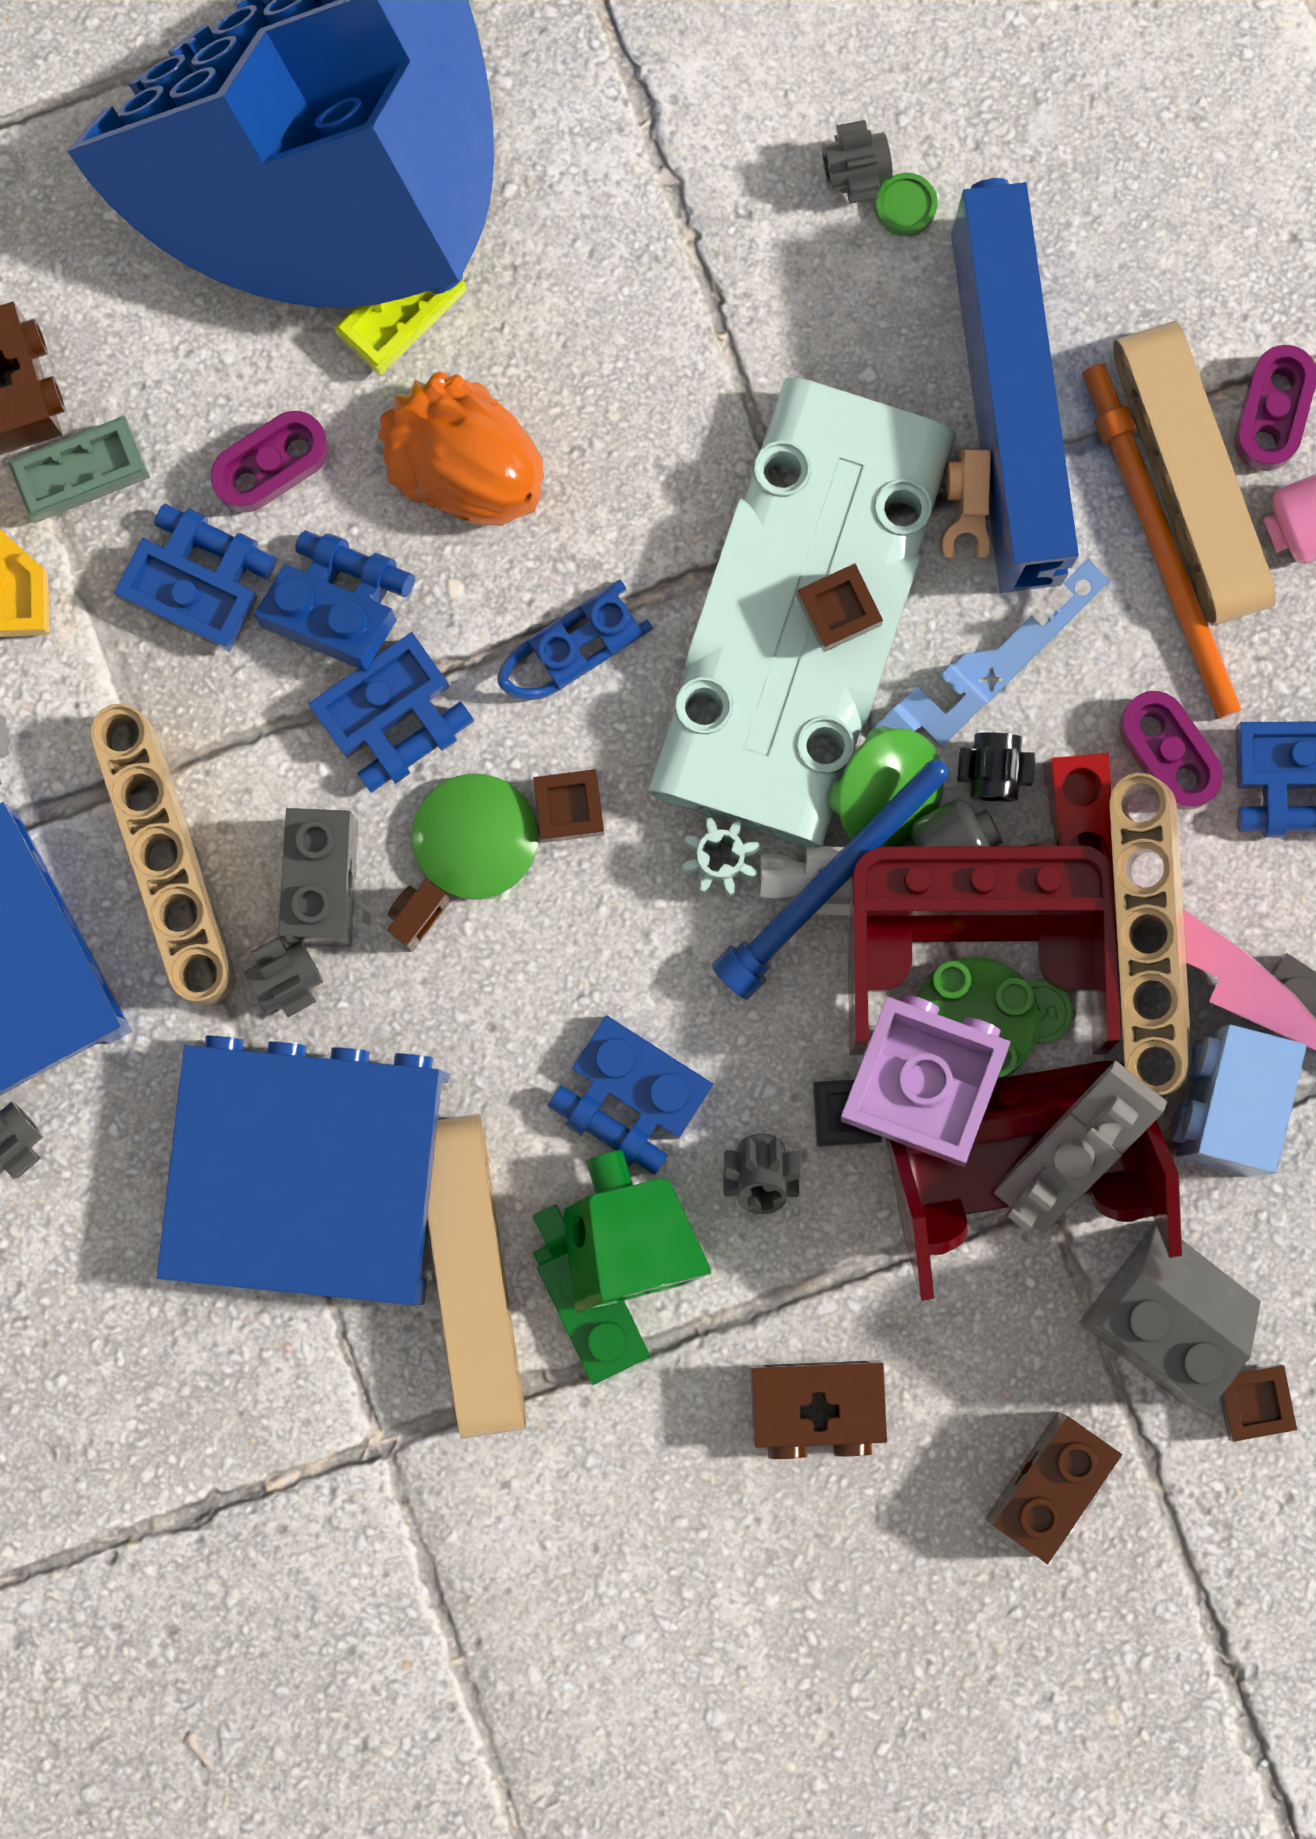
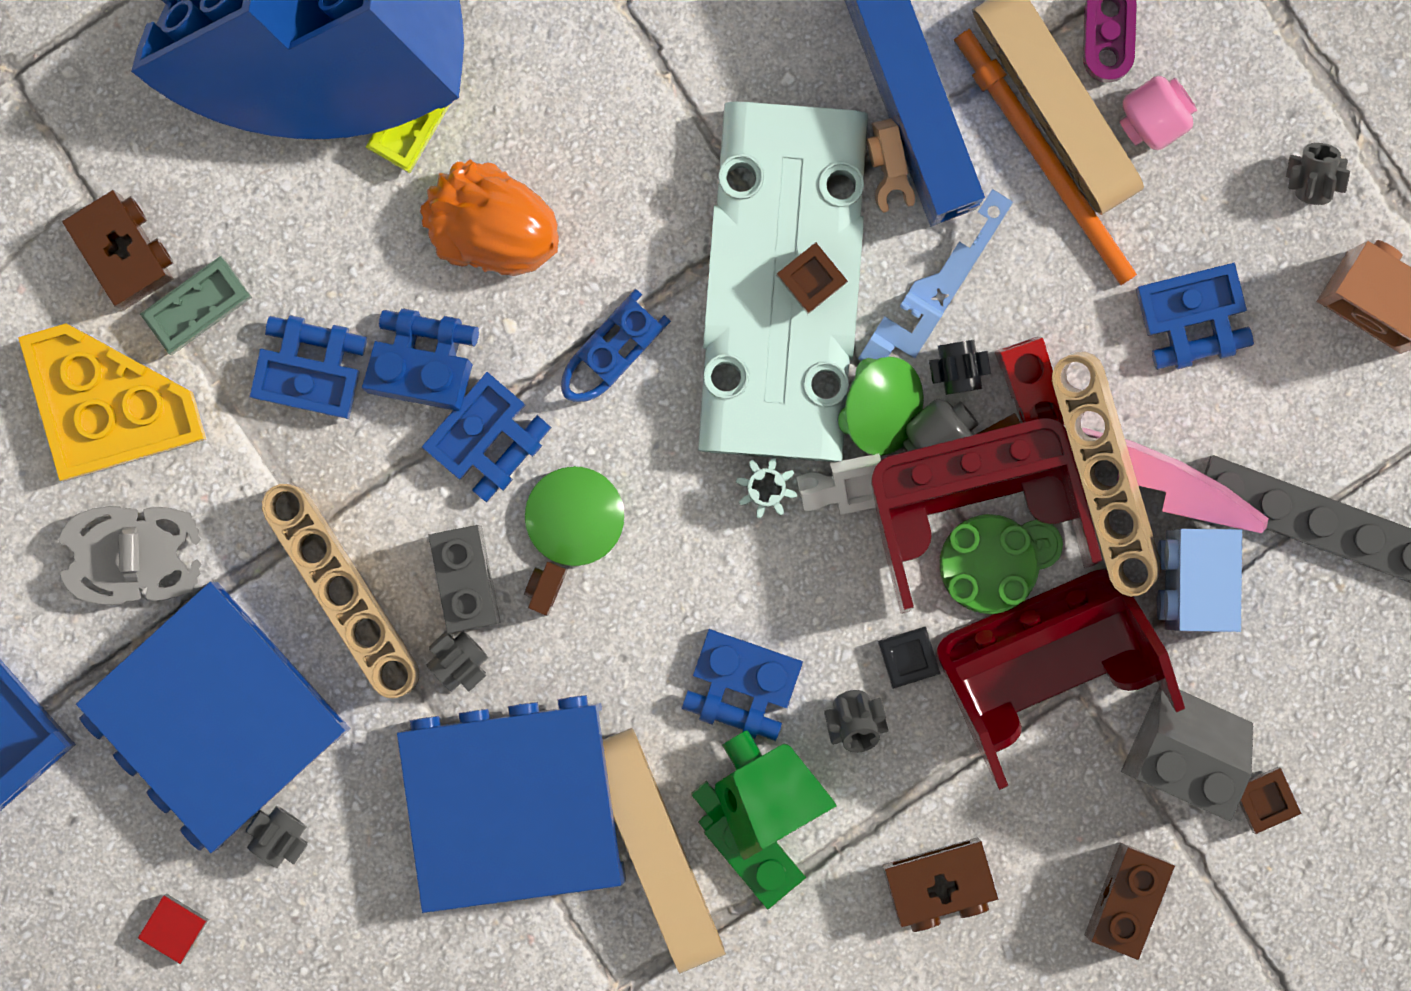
camera: 15 degrees left, 5 degrees up
(266, 457) = (338, 260): magenta plate -> none
(568, 806) = (640, 476): reddish brown plate -> none
(745, 966) = (806, 565): blue piece -> none
(926, 1079) = (963, 622): lavender plate -> none
(1079, 1148) = (1090, 646): light grey plate -> none
(1175, 748) = (1092, 316): magenta plate -> none

